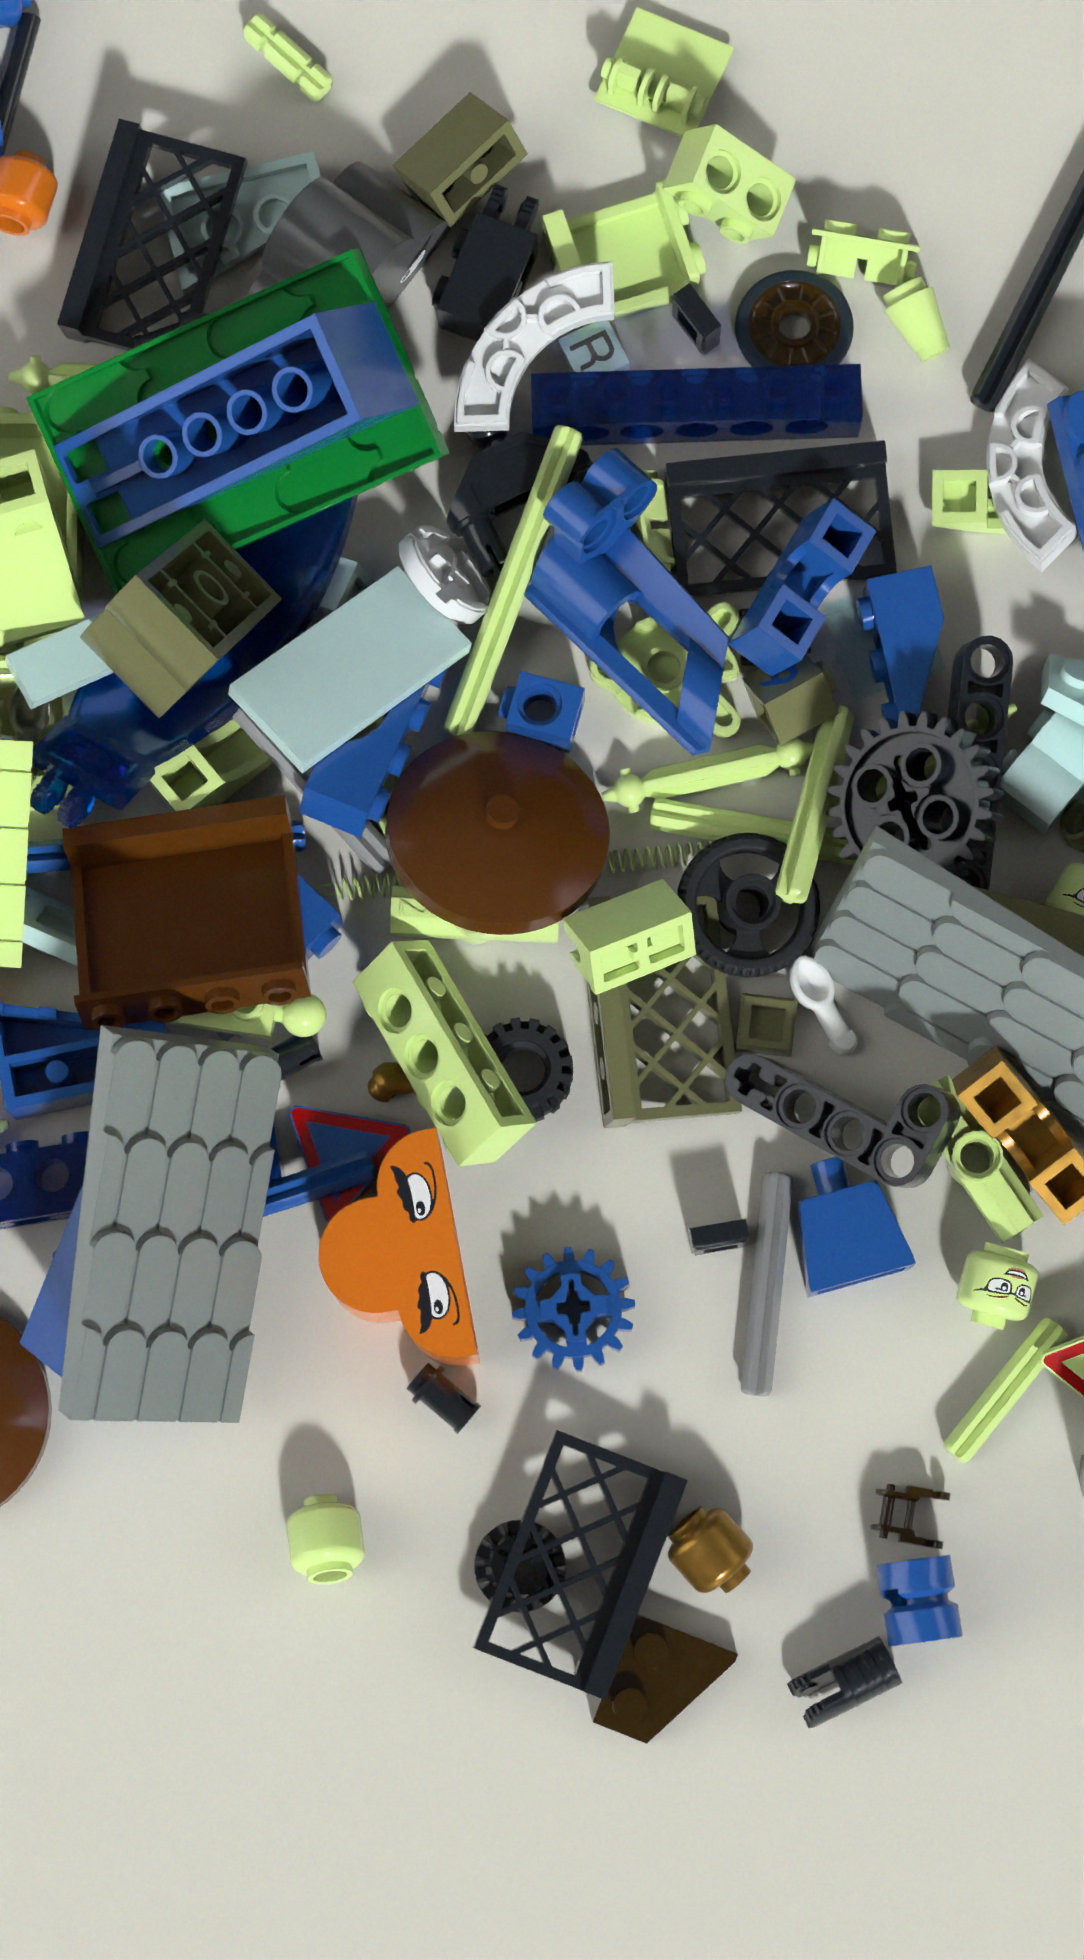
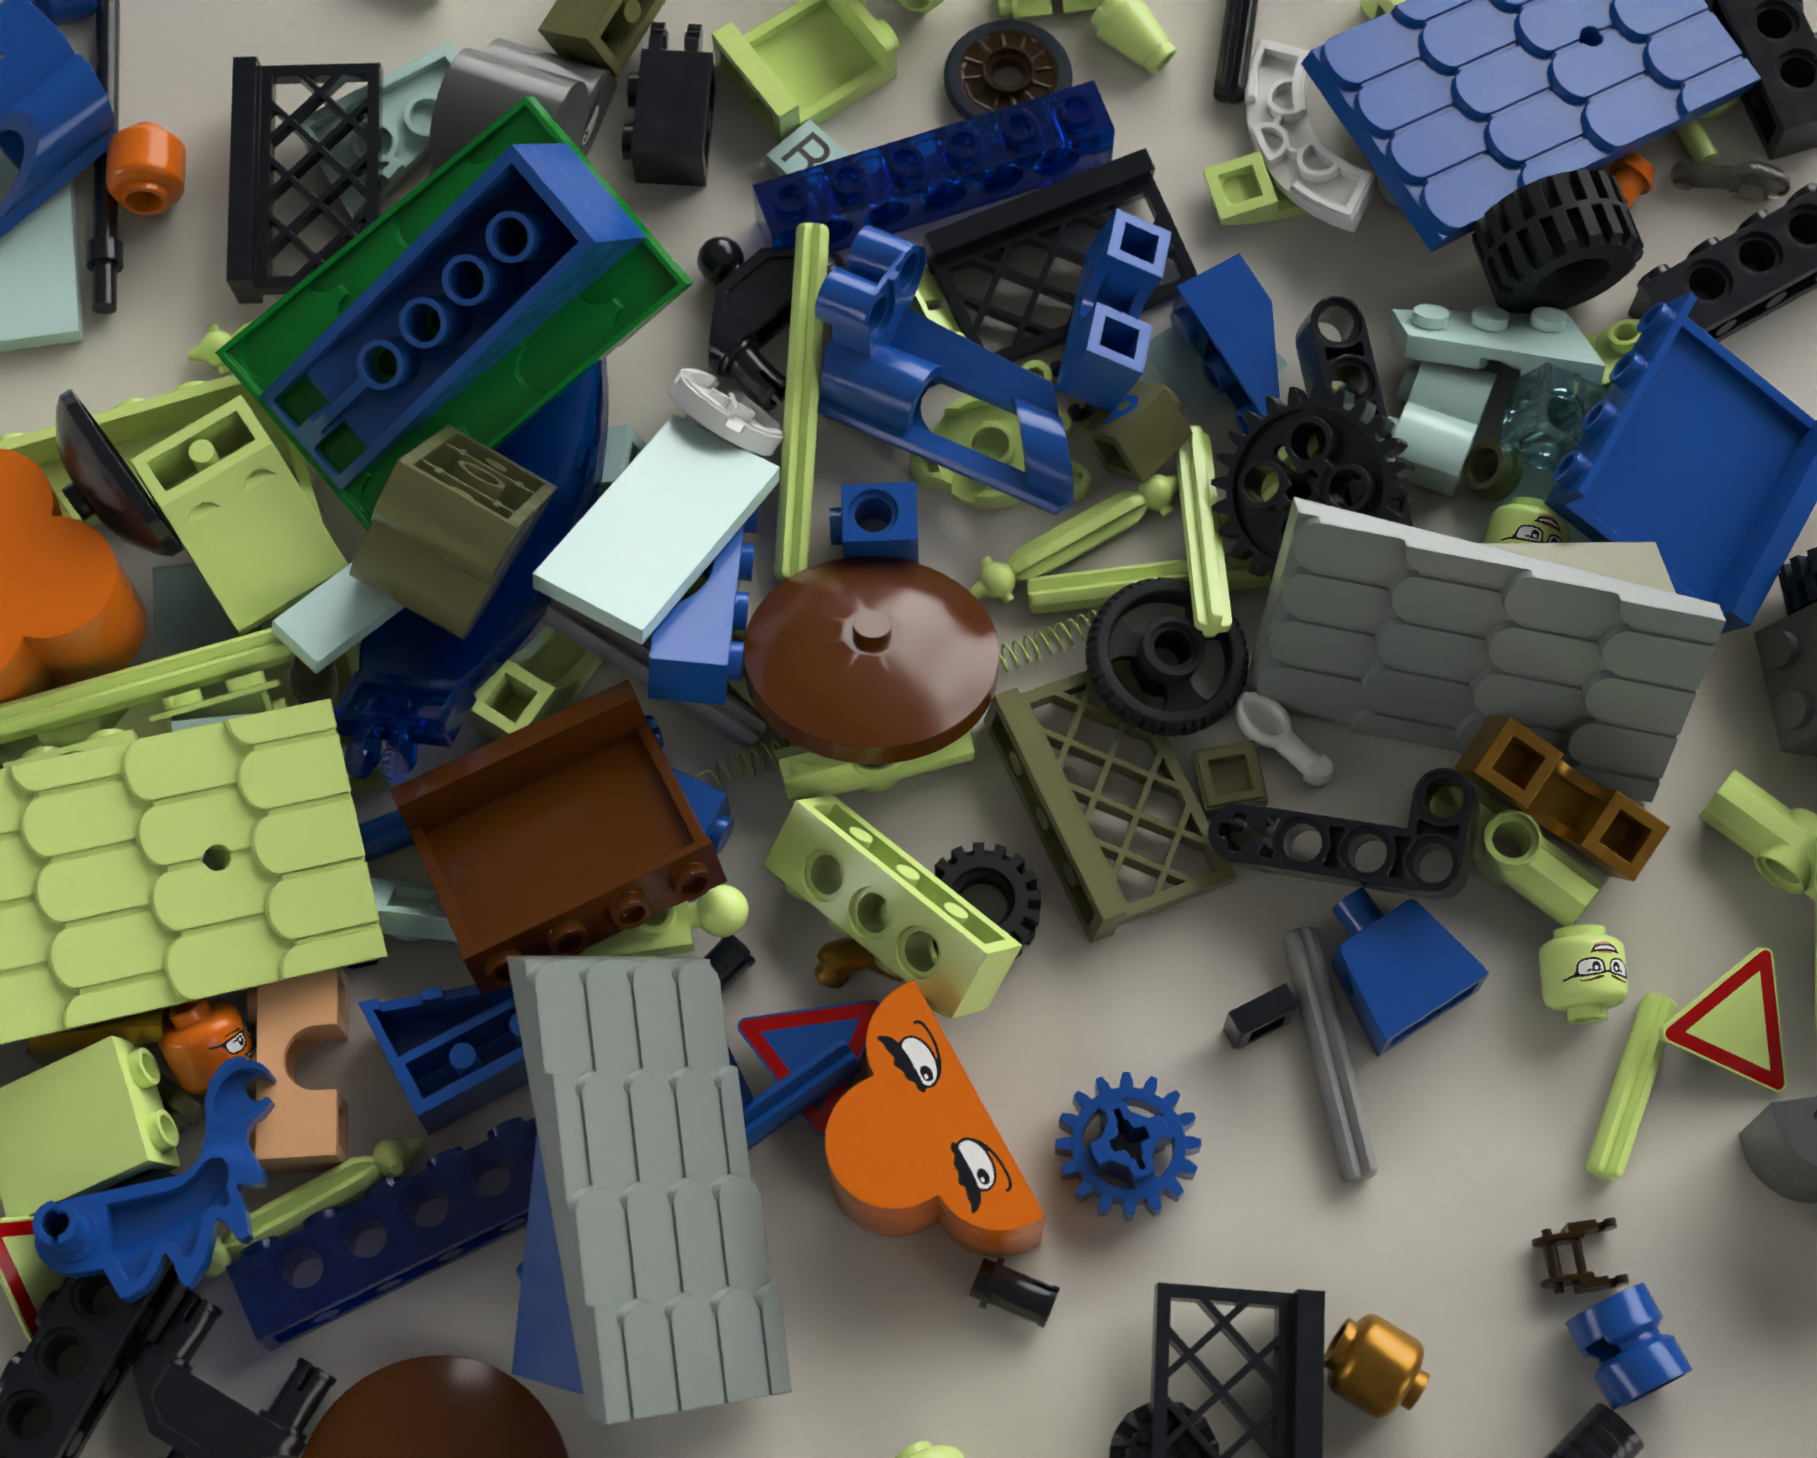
camera: 20 degrees left, 10 degrees down
(521, 332) = (728, 150): white tile -> none
(630, 936) = (1055, 719): yellowish green hinge -> none
(696, 319) = (905, 94): black tile -> none

